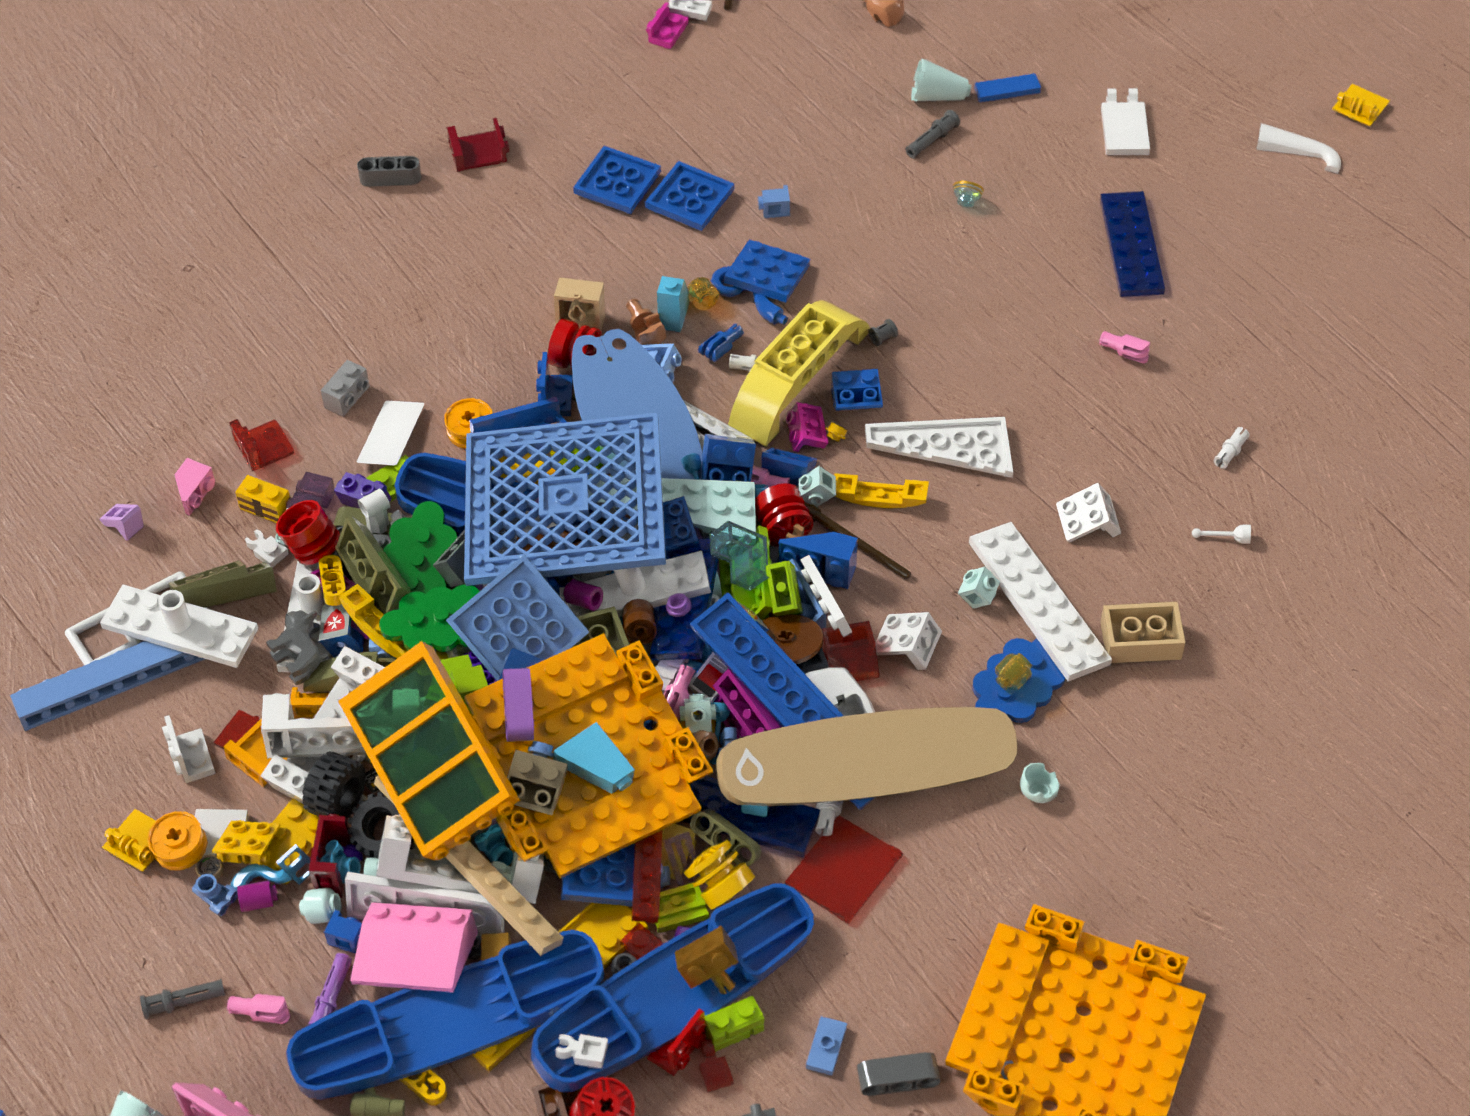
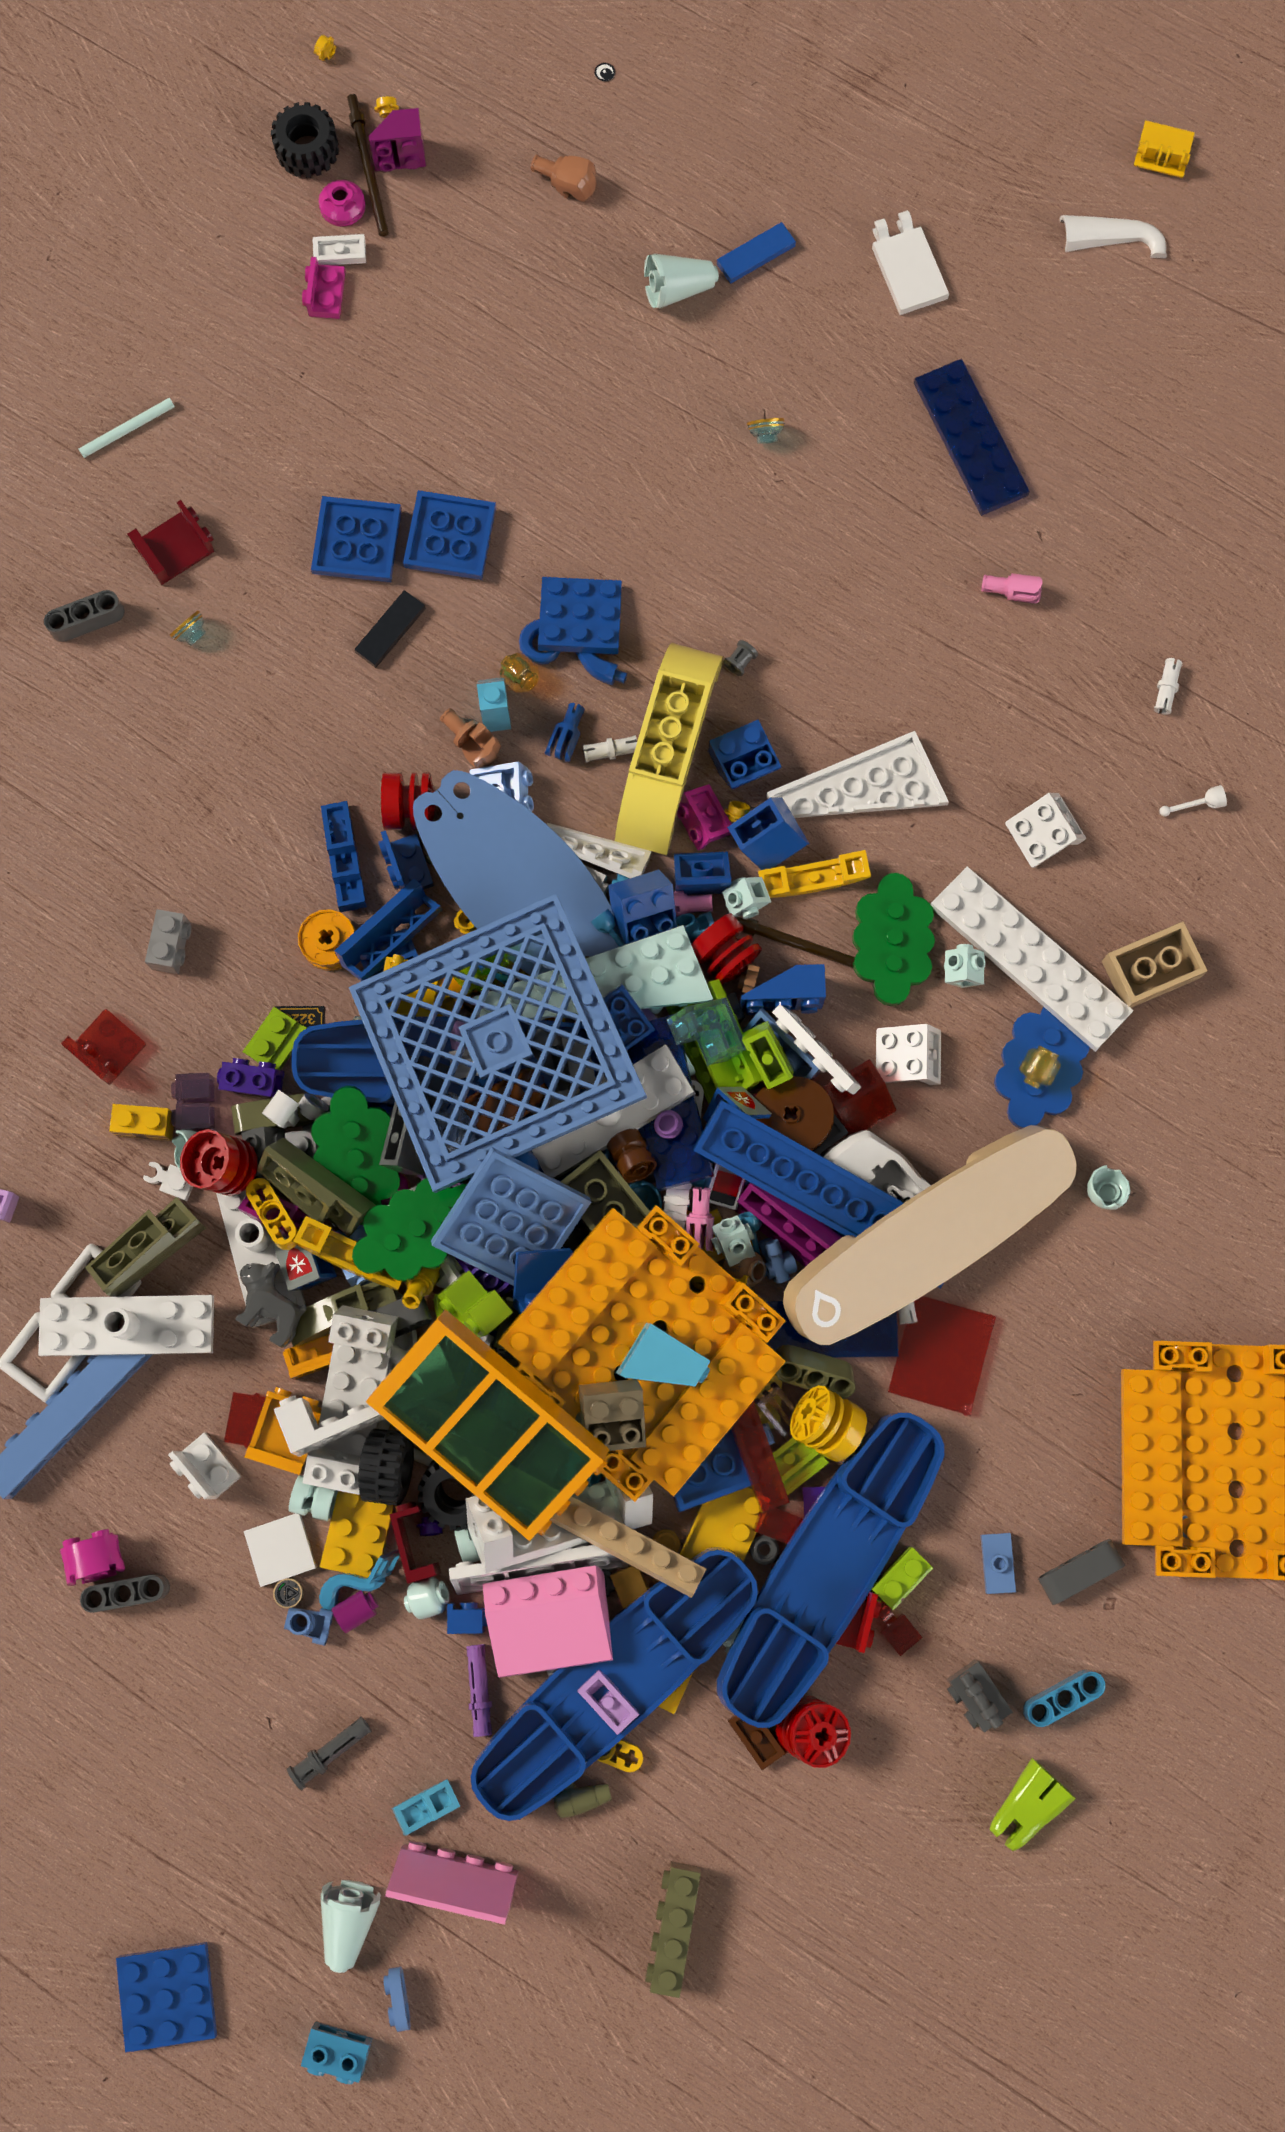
camera: 20 degrees left, 25 degrees up
(65, 783) = (92, 1558): none -> dark pink brick
(68, 814) = (111, 1597): none -> dark grey beam
(130, 840) = (198, 1587): yellow hinge -> none
(177, 840) = (227, 1582): light orange wheel -> none
(193, 483) = (51, 1128): bright pink slope -> none
(240, 1071) = (425, 1807): none -> medium azure slope
(245, 842) = (317, 1555): yellow hinge -> none
(261, 1008) = (416, 1735): bright pink arm -> none
(263, 799) = (312, 1499): none -> light aqua wheel
(345, 864) = (427, 1546): dark azure plate -> none
(390, 433) = (244, 982): white sticker -> none
(437, 1034) = (613, 1706): none -> lavender slope
(463, 198) = (190, 629): none -> clear light blue piece
(479, 71) = (126, 427): none -> light aqua piece
(509, 373) = (343, 856): none -> blue slope
(518, 705) = (562, 1337): medium lavender beam -> none
(541, 749) = (603, 1375): medium blue plate -> none
(580, 302) = (389, 742): tan brick -> none
(583, 595) = (562, 1149): magenta brick -> none
(587, 1051) = (782, 1686): white plate -> none
(615, 242) = (390, 629): none -> black tile
(708, 959) = (858, 1534): pearl gold brick -> none
(775, 202) = (552, 513): medium blue brick -> none
(853, 446) = (768, 834): none -> blue slope
(927, 554) = (893, 939): none -> green plate
(938, 130) = (700, 343): dark grey pin -> none

